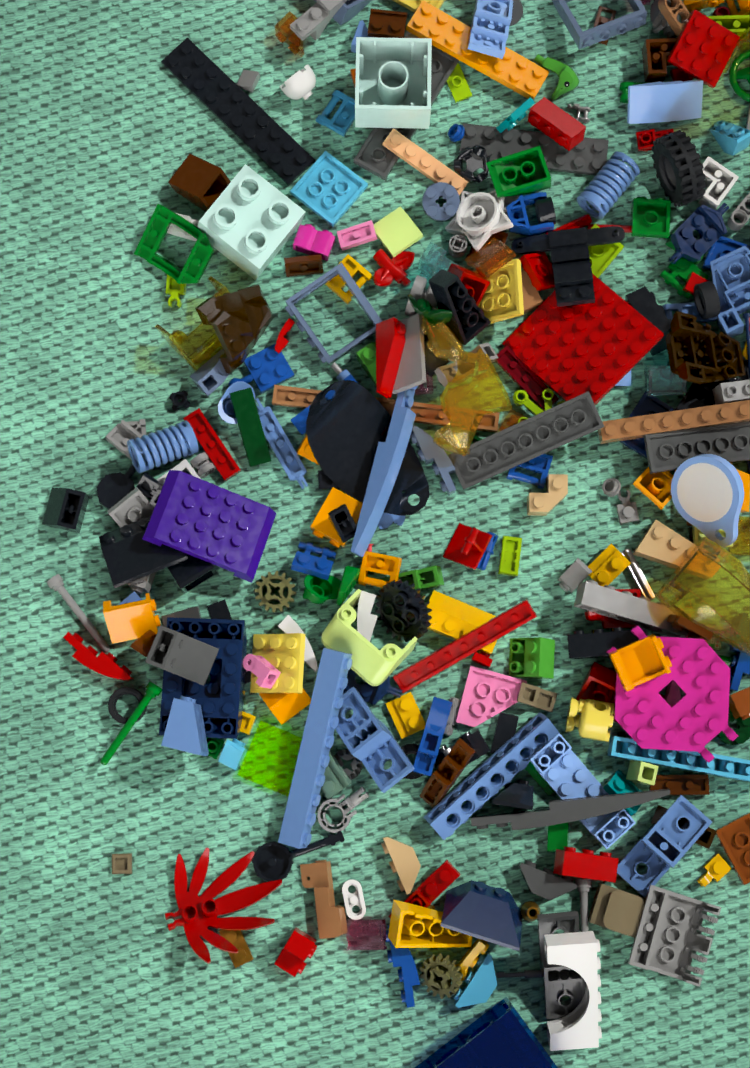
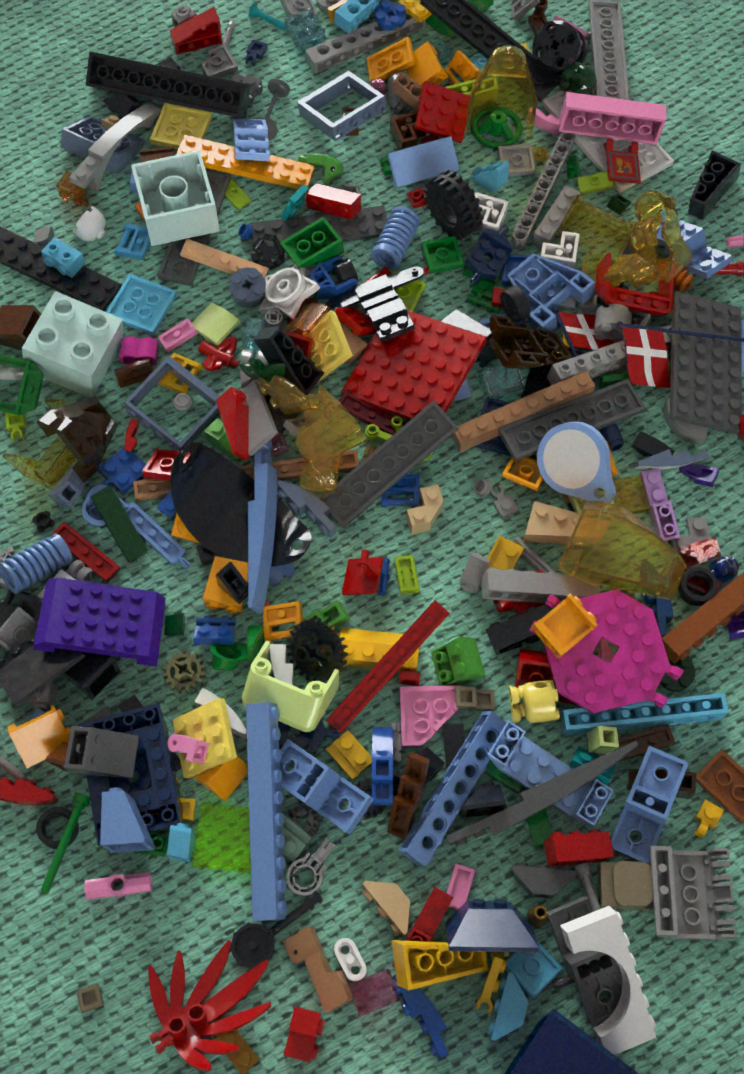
camera: 15 degrees left, 15 degrees down
(156, 771) = (105, 886): none -> bright pink piece
(262, 115) = (62, 257): none -> medium azure brick
(278, 542) = (174, 624): none -> dark green slope
(311, 376) = (161, 464): none -> red plate
(343, 310) = (182, 402): none -> white plate
(441, 975) = (468, 1022): olive gear -> none
(470, 863) = (460, 885): none -> bright pink tile
(511, 962) = (533, 970): none -> medium azure plate
(695, 631) = (597, 584): reddish brown plate -> none

